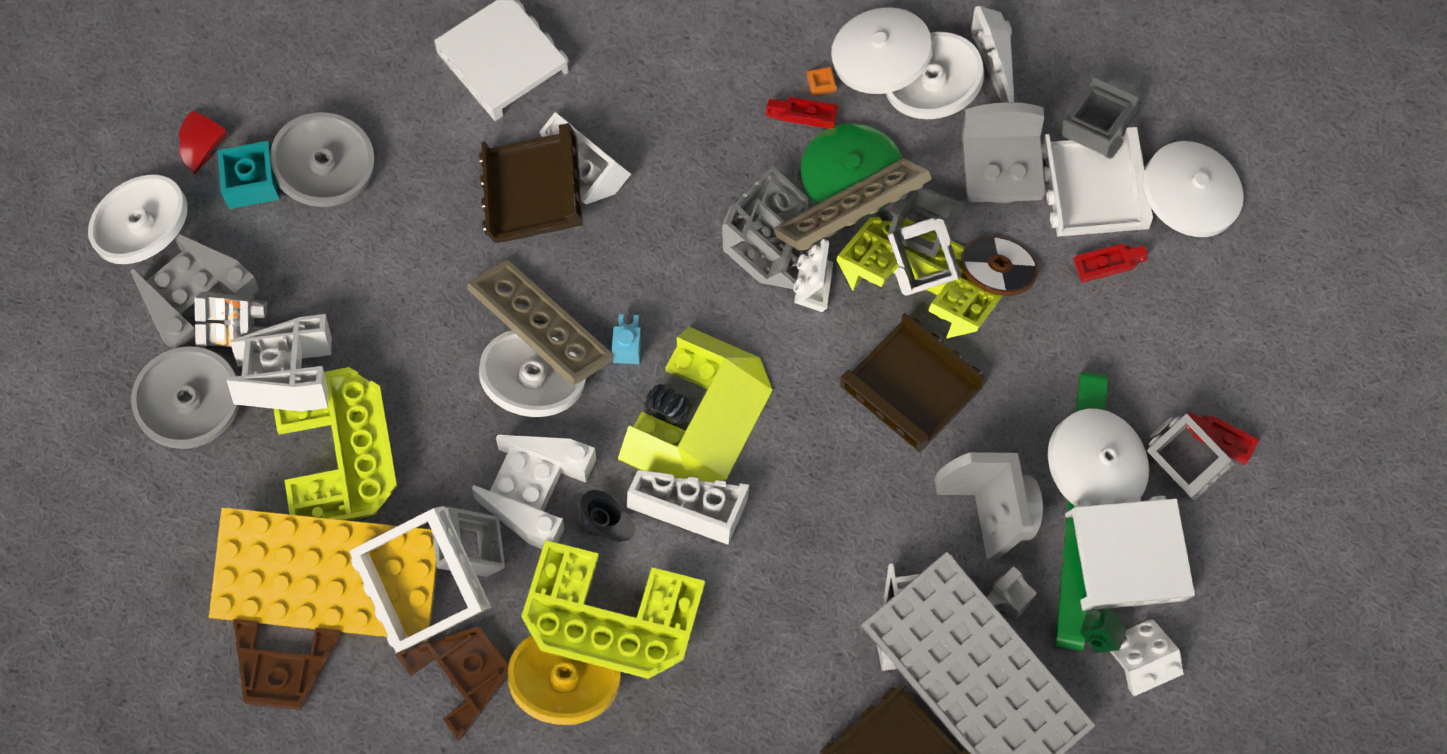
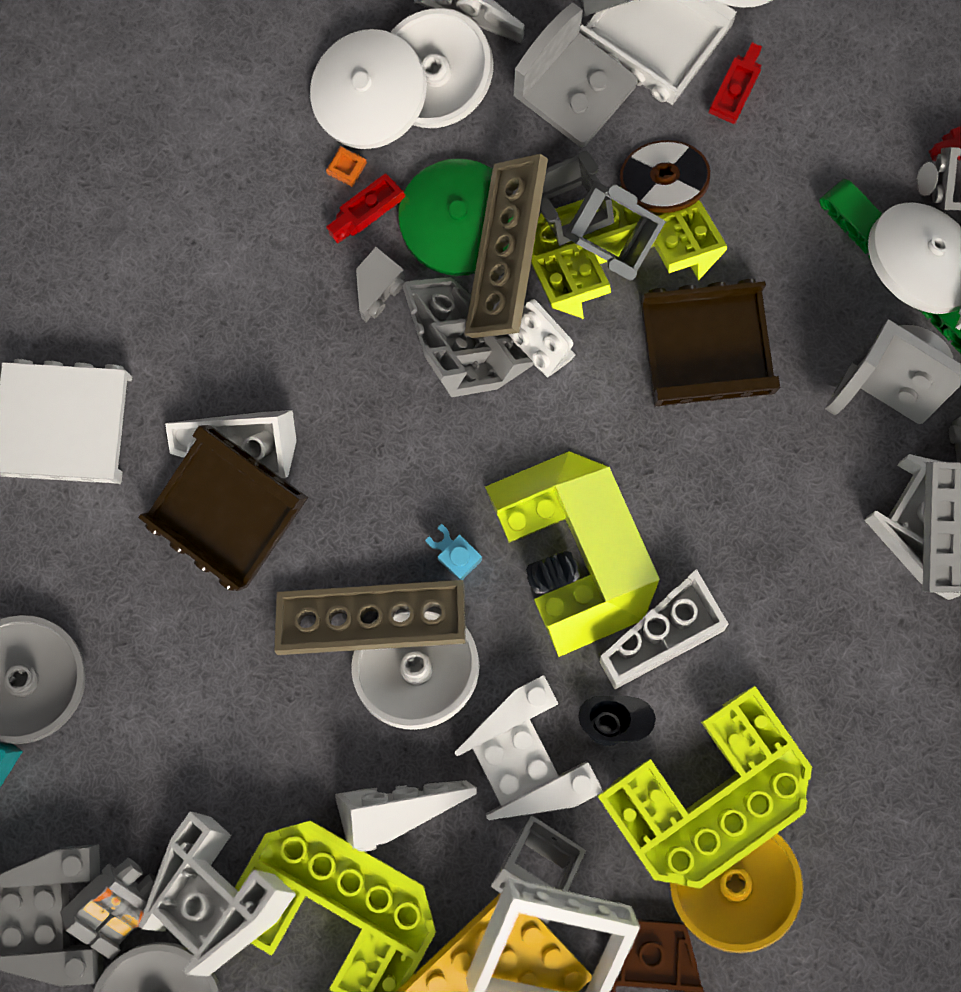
camera: 50 degrees left, 15 degrees up
(417, 424) = (380, 817): none -> white wedge
(758, 156) = (376, 281): none -> light grey slope

